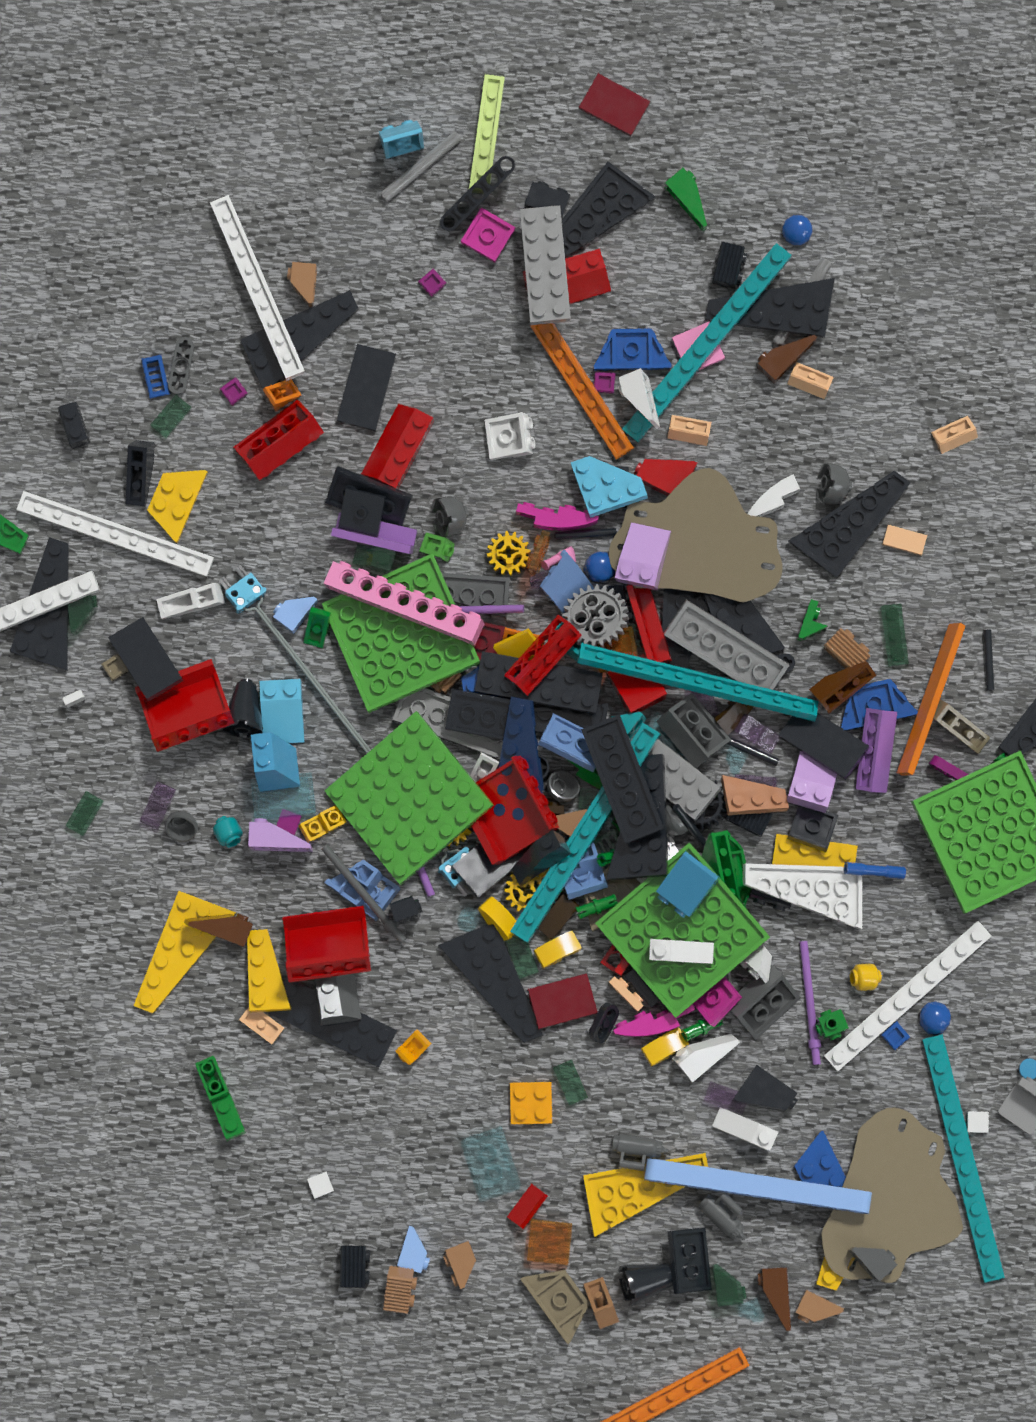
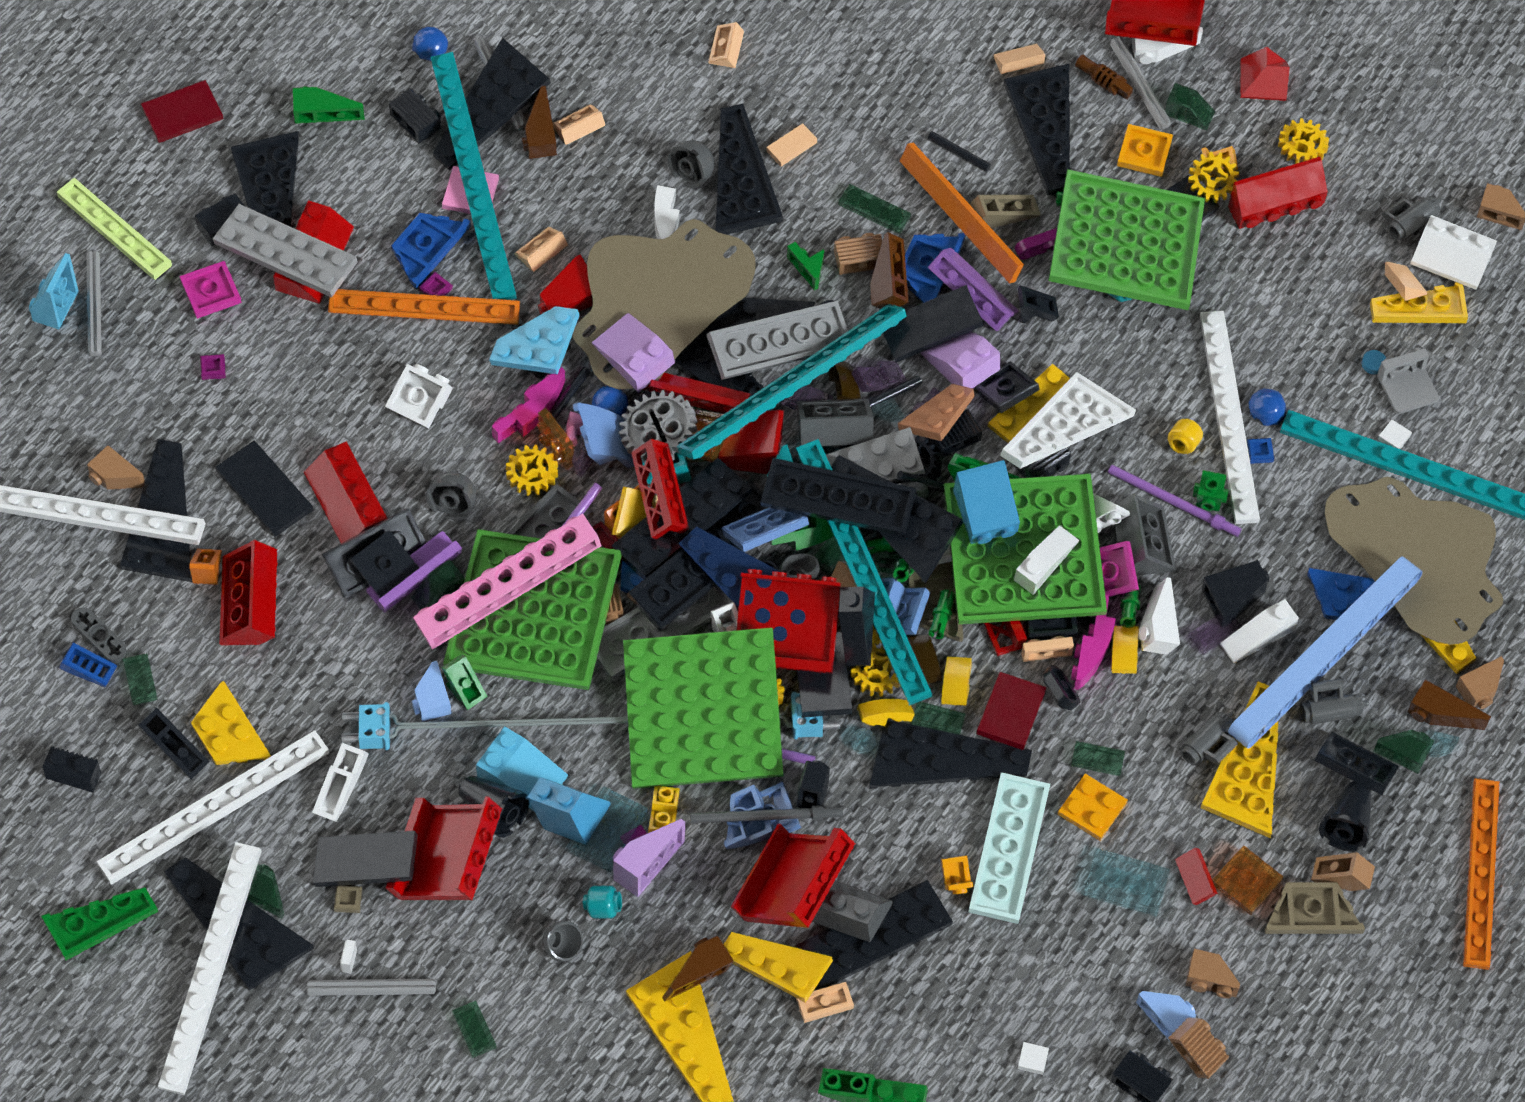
camera: 60 degrees left, 20 degrees down
(66, 727) = (371, 987): none -> light grey axle
(158, 805) = (522, 953): clear purple slope -> none
(233, 391) = (165, 606): magenta tile -> none
(438, 545) = (467, 526): bright green bracket -> none
(459, 1068) = (1009, 848): none -> light aqua plate
(468, 196) = (165, 255): black beam -> none
(638, 391) = (475, 260): white slope -> none
(874, 1261) = (1473, 599): dark grey slope -> none
(887, 871) = (1096, 354): blue piece -> none
(895, 803) = (1037, 304): none -> black slope

